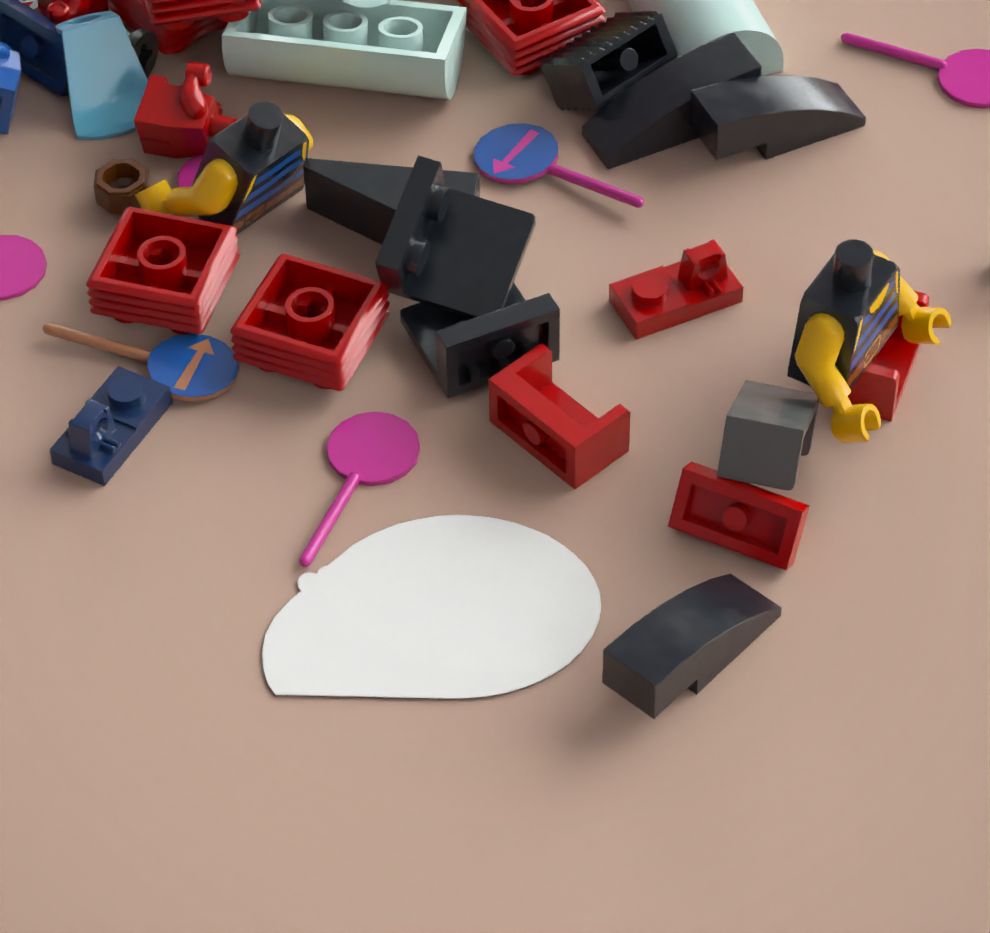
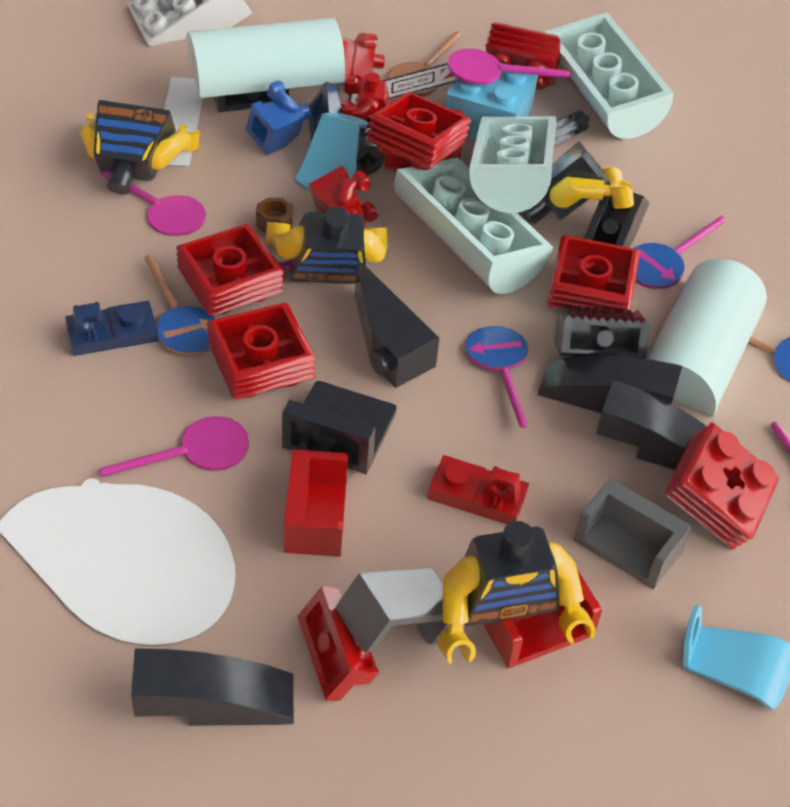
camera: 40 degrees right, 0 degrees up
(452, 246) = (364, 360): black bracket -> none
(867, 207) = (631, 533): none -> dark grey panel
(885, 116) = (722, 485): none -> red brick

